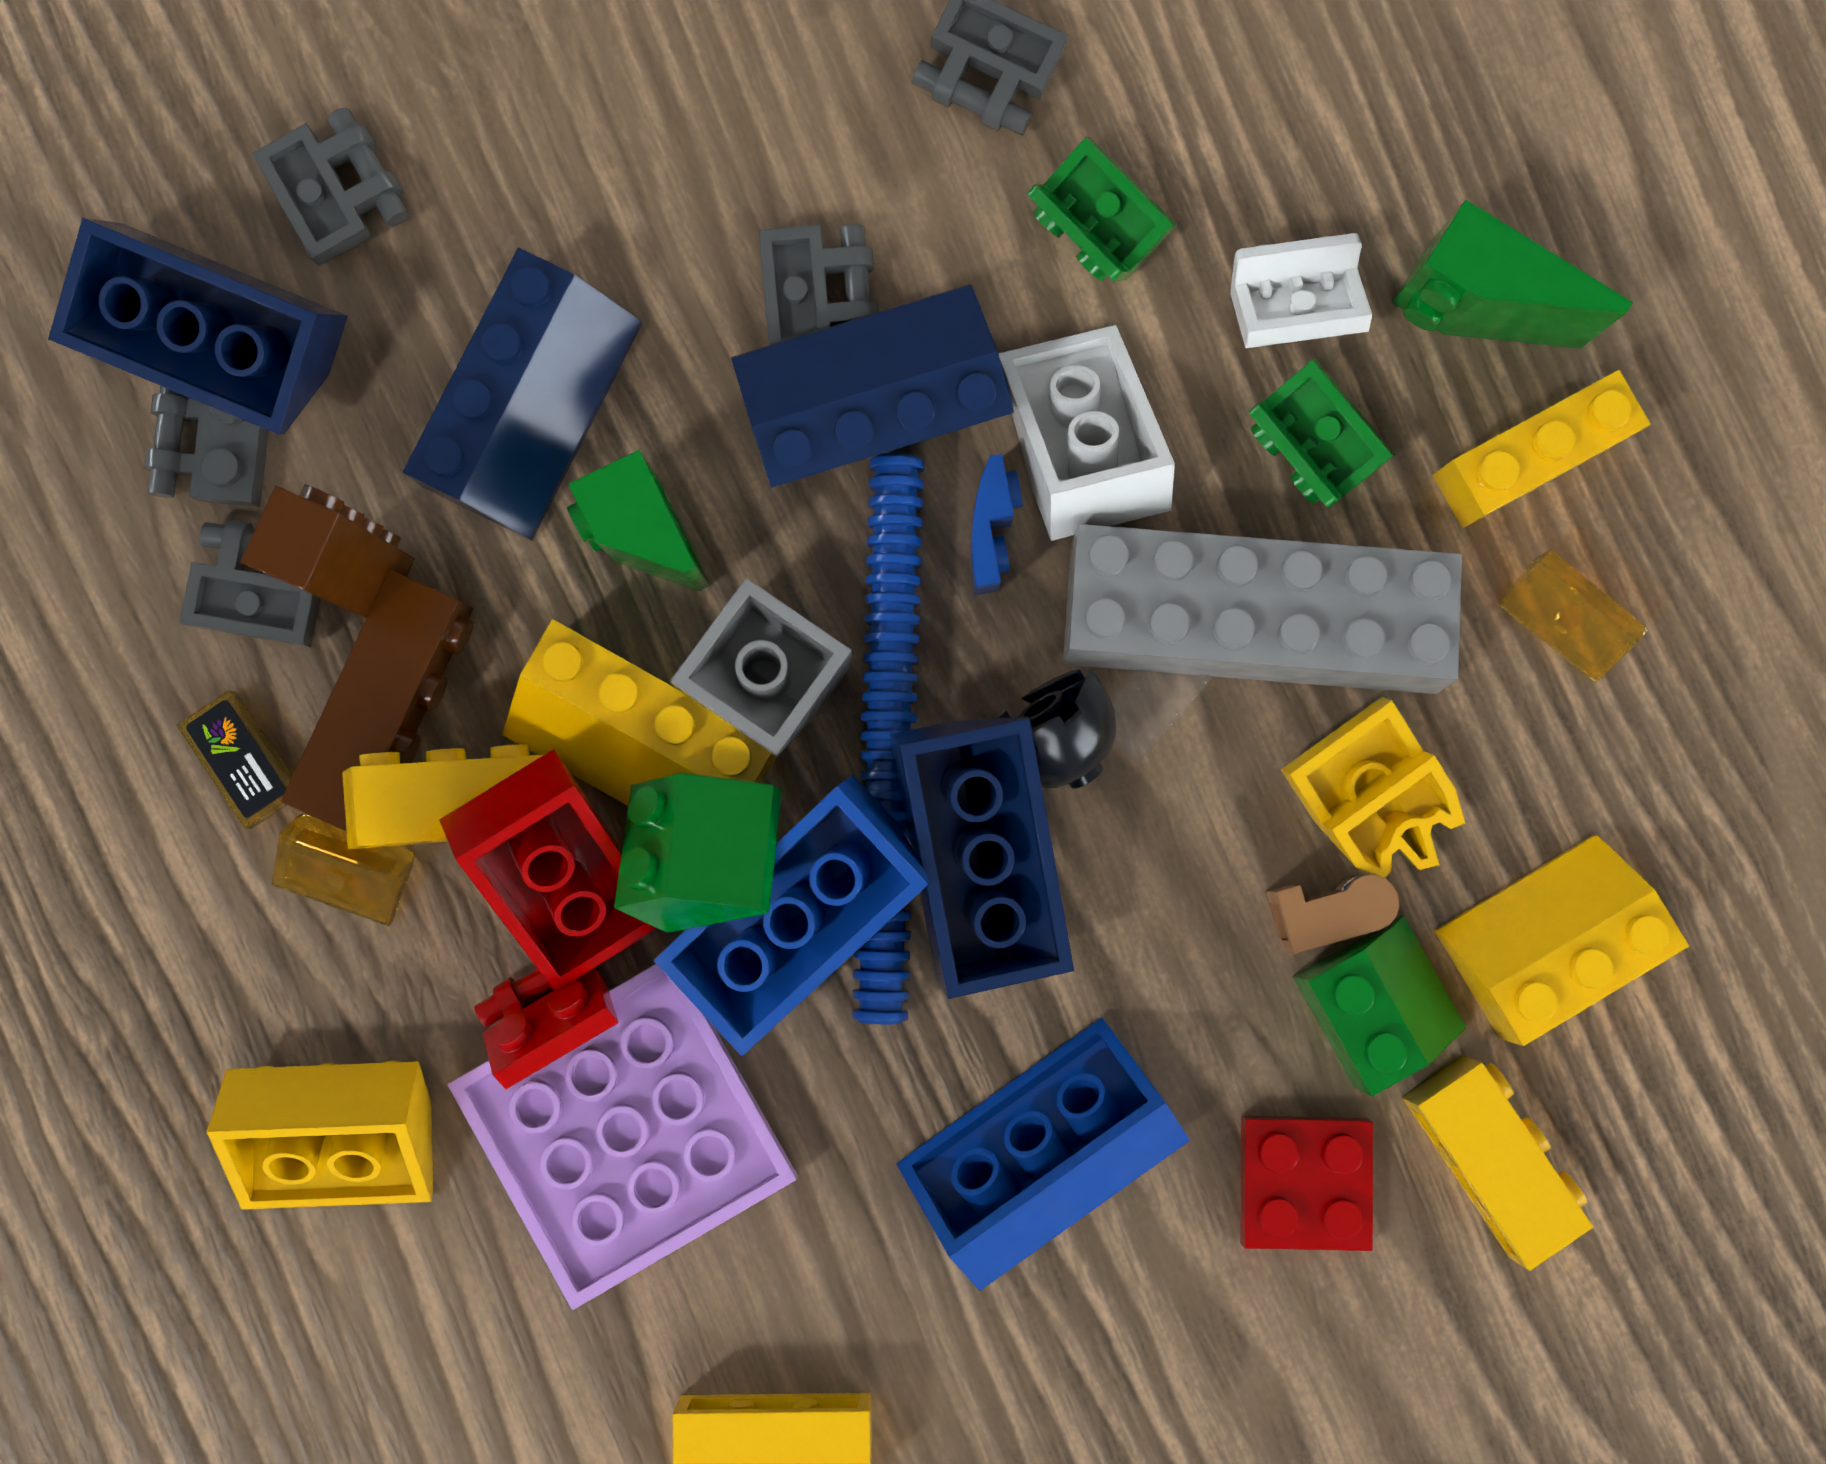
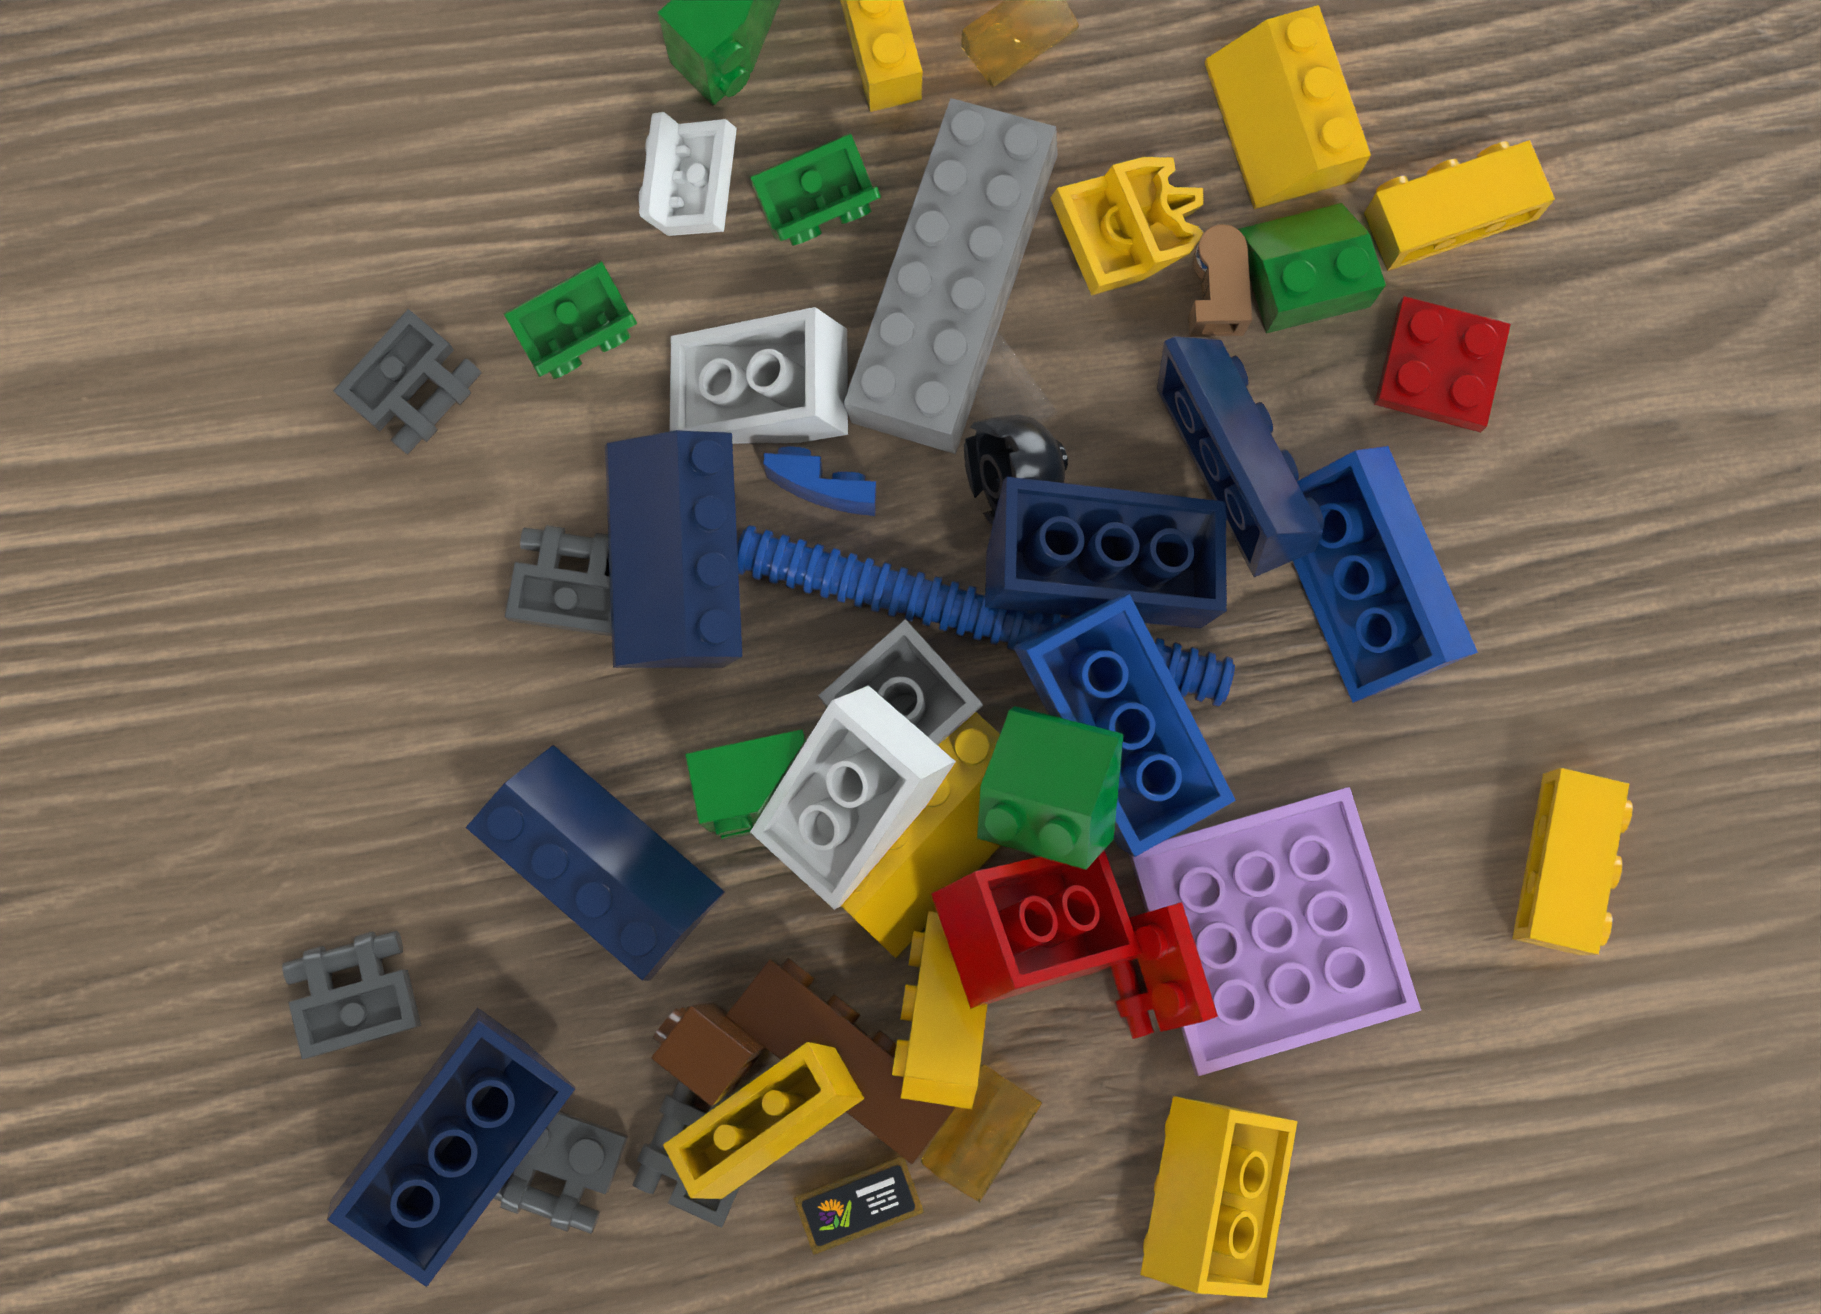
camera: 80 degrees left, 5 degrees down
(279, 634) = (763, 1121): none -> yellow brick
(642, 637) = (850, 793): none -> white slope
(1137, 972) = (1237, 453): none -> dark blue slope

